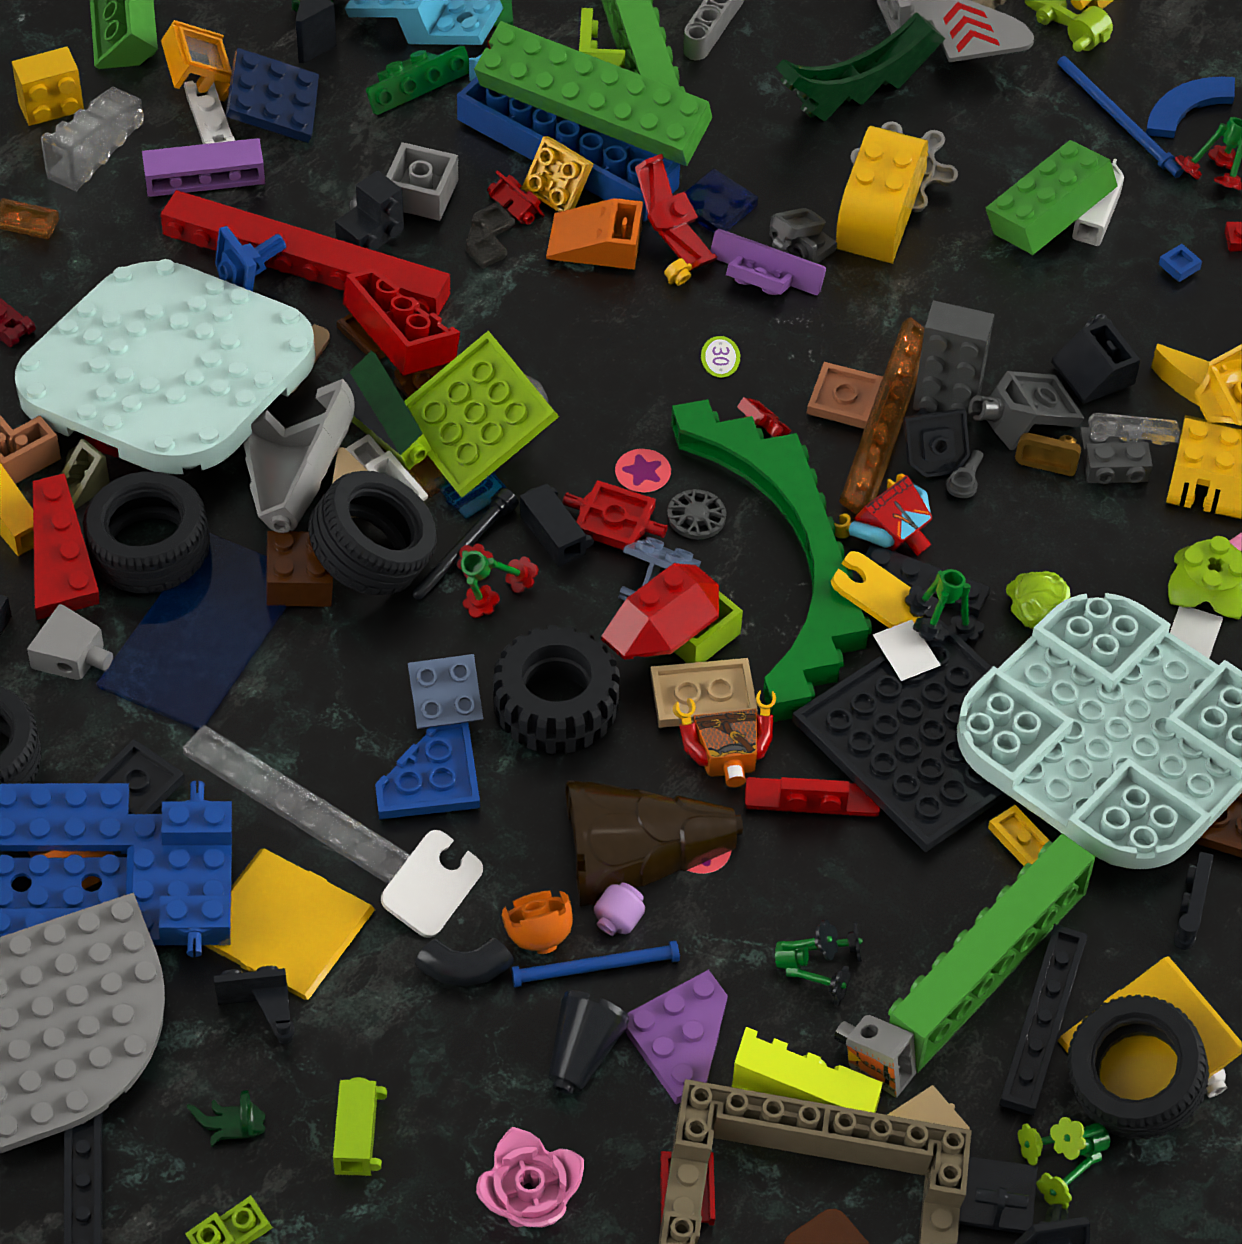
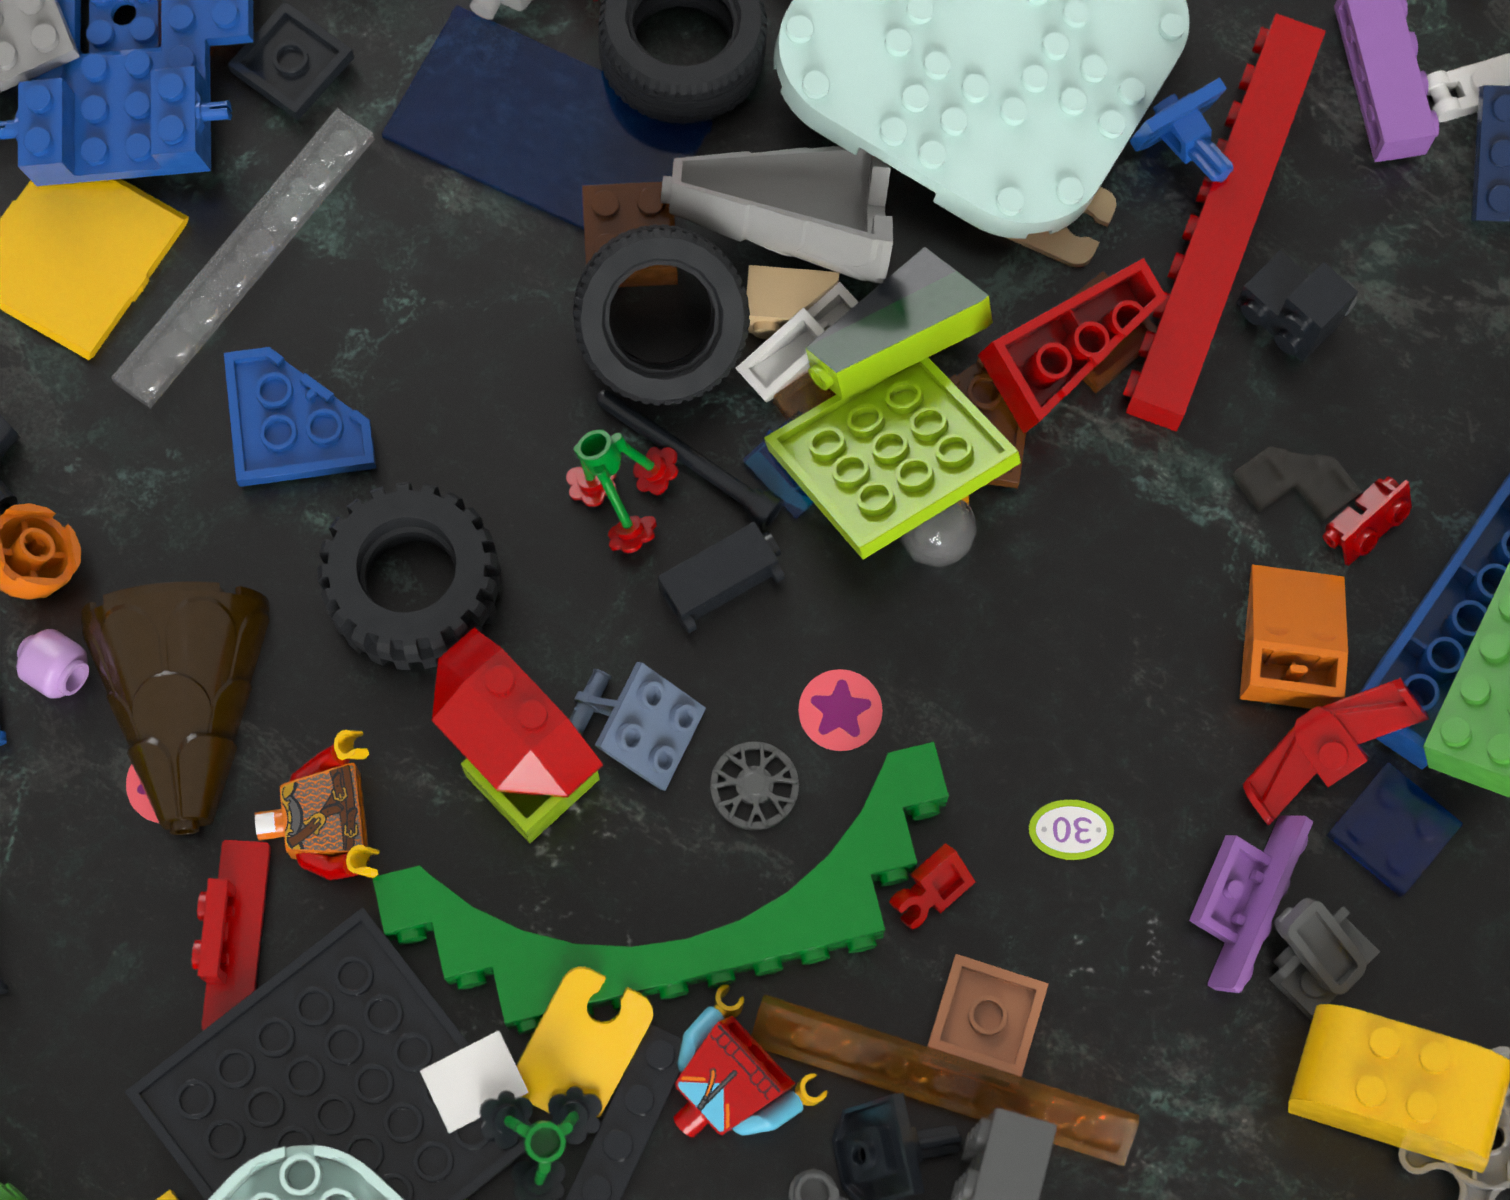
camera: 90 degrees right, 20 degrees up
(425, 179) = (1380, 372): light grey brick -> none
(426, 892) = (102, 416): white piece -> none
(445, 691) = (405, 427): sand blue plate -> none
(557, 175) = (1405, 572): yellow tile -> none
(615, 515) = (739, 663): red plate -> none
(678, 272) = (1231, 764): yellow plate -> none
(710, 684) = (415, 789): tan plate -> none

